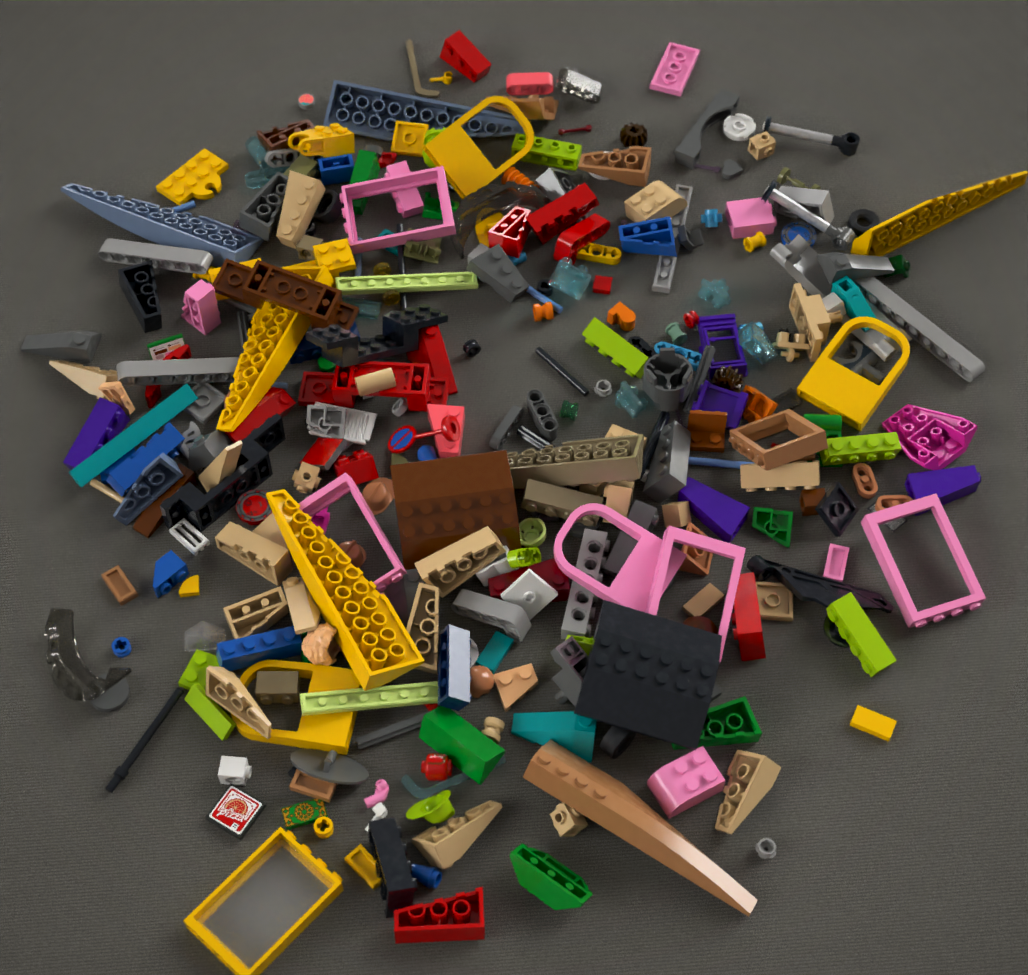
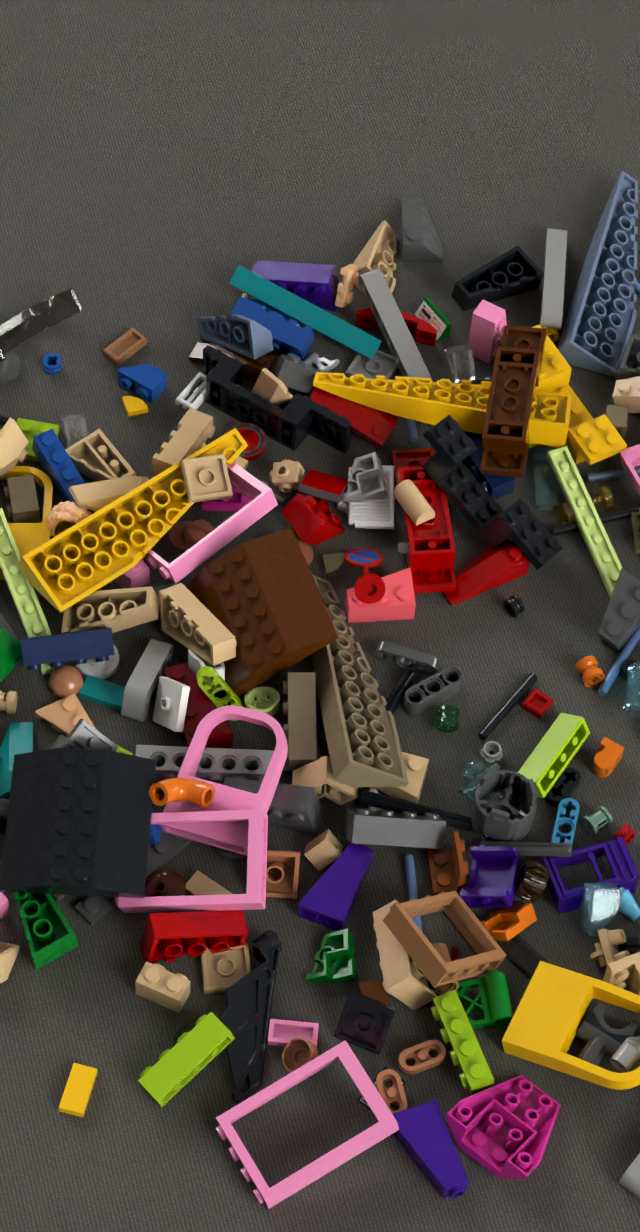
camera: 75 degrees right, 0 degrees up
(215, 338) = (461, 362): none -> clear slope
(314, 524) = (206, 478): none -> tan tile
(426, 453) = (340, 587): blue cone -> none
(563, 352) = (537, 703): none -> red tile
(629, 588) = (182, 791): none -> orange cylinder
(790, 644) = (163, 986): none -> tan brick
(861, 557) = (298, 1053): none -> nougat hair

